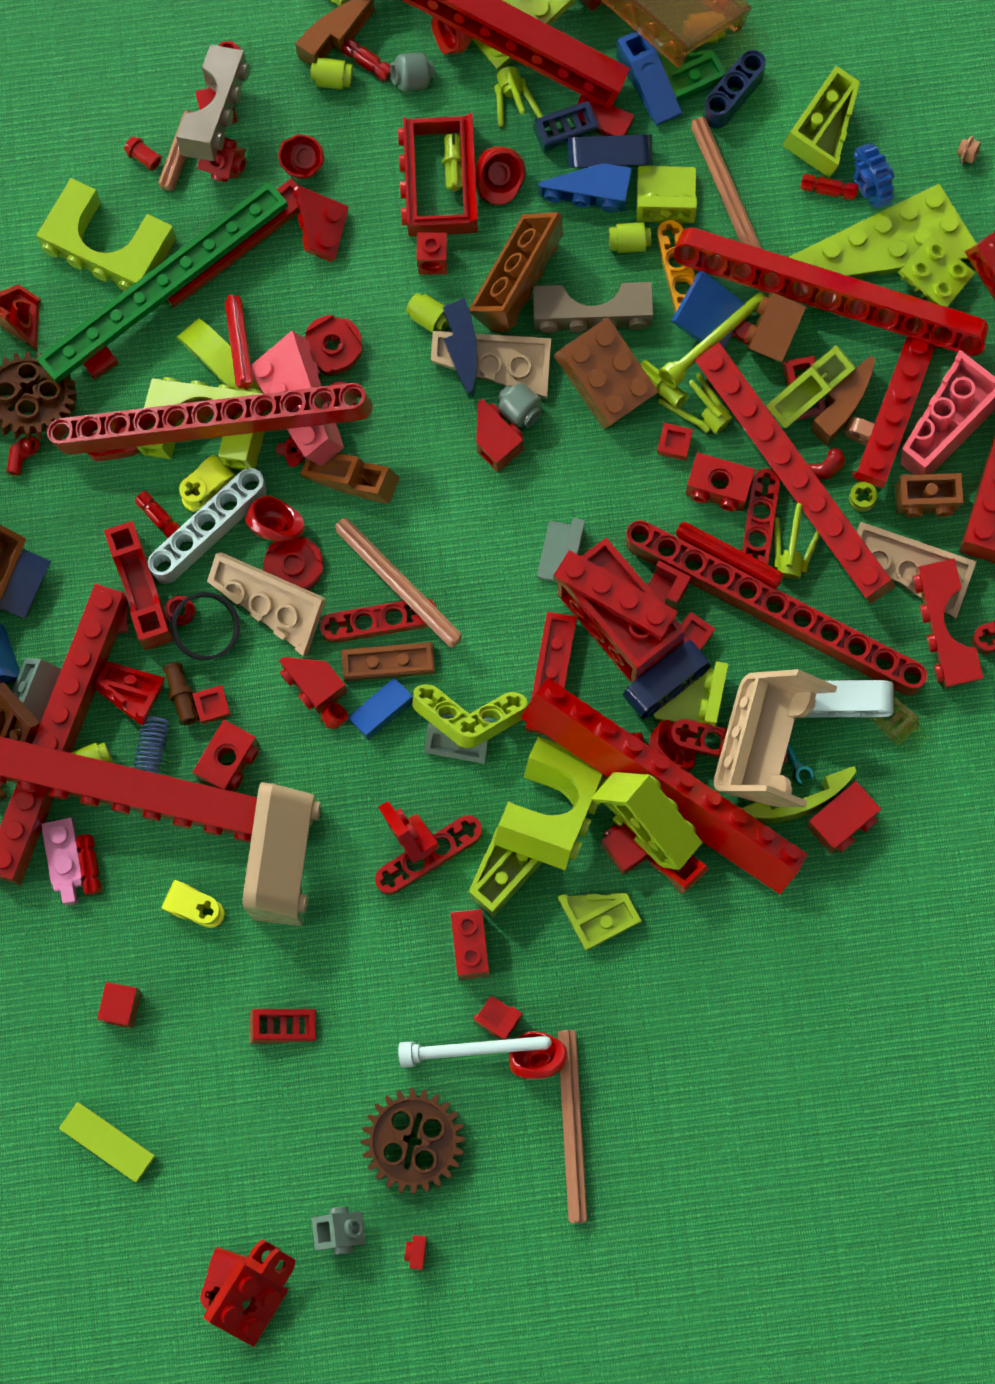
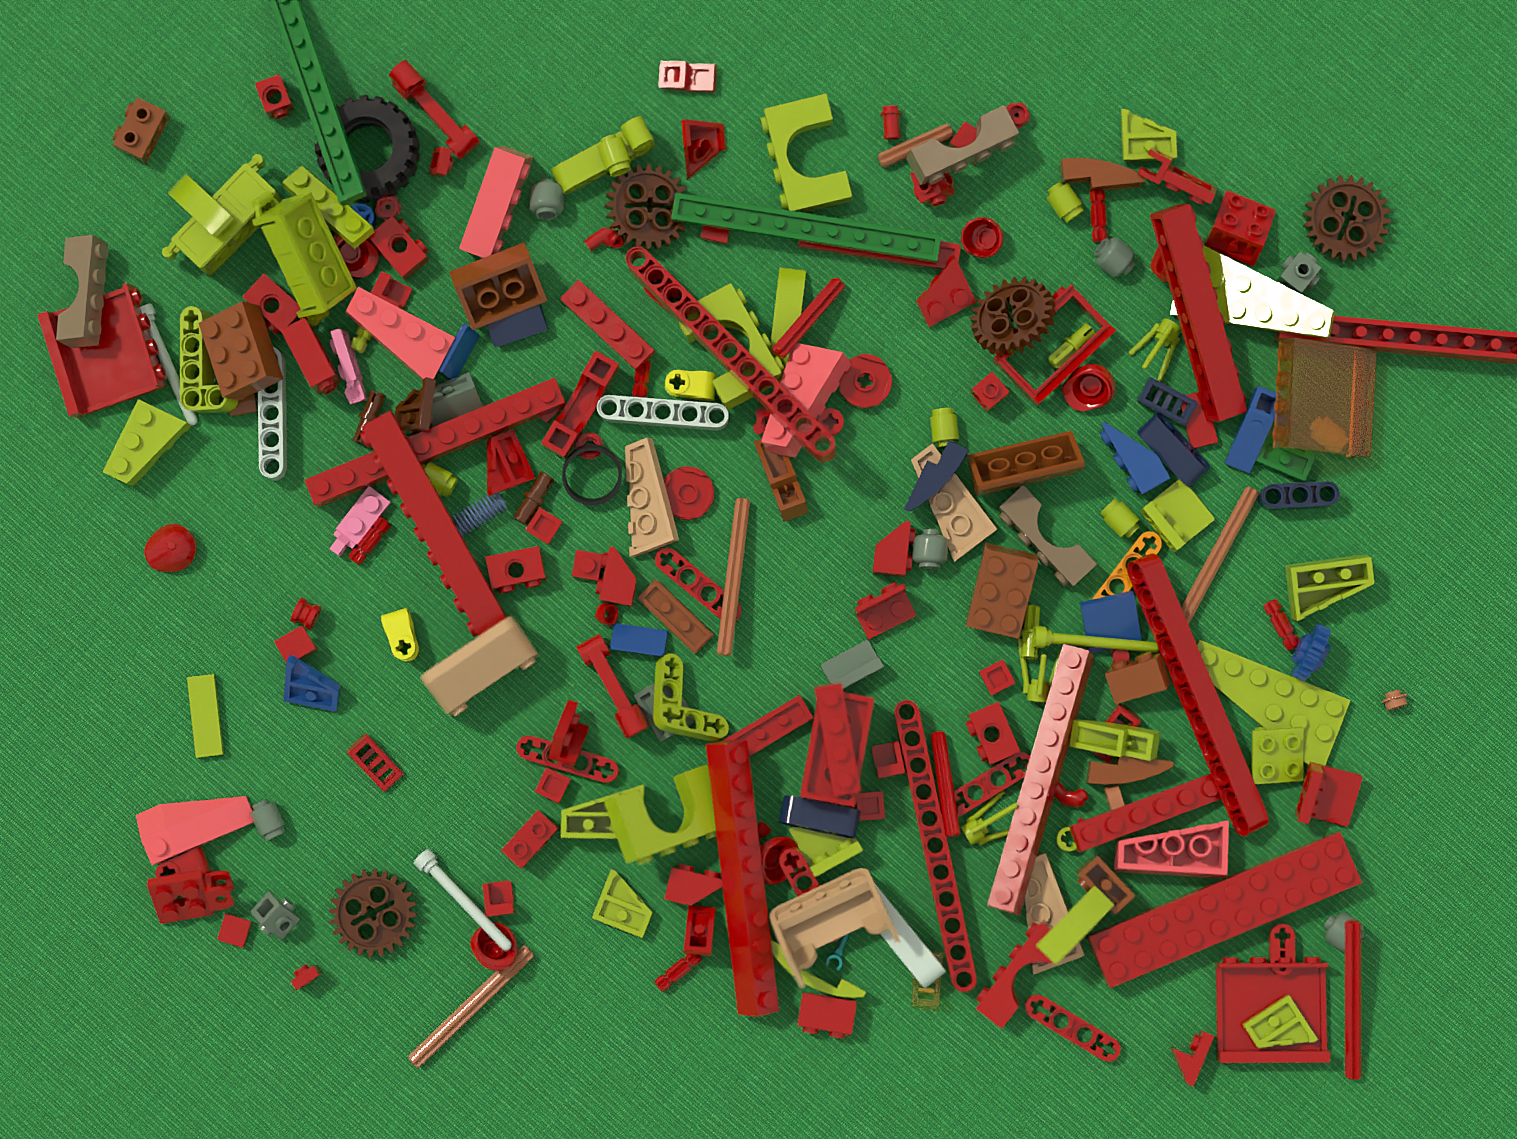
camera: 45 degrees right, 10 degrees up
(93, 510) = (607, 325): none -> red plate
(99, 973) = (305, 613): none -> red wheel
(165, 1023) = (309, 687): none -> blue wing
(184, 1250) = (182, 826): none -> coral wedge
(248, 1164) = (267, 819): none -> sand green brick
(274, 520) = (704, 455): red hat -> none
(278, 698) = (587, 565): none -> red plate
(319, 1283) = (234, 930): none -> red tile
(394, 160) = (1031, 312): none -> reddish brown gear
(440, 768) = (629, 717): none -> red piece
(440, 886) = (552, 785): none -> red plate
(537, 485) = (884, 611): none -> red bracket
(651, 816) = (710, 888): lime wedge -> none
(696, 915) = (677, 971): none -> red axle
(945, 540) = (1075, 925): none -> lime slope

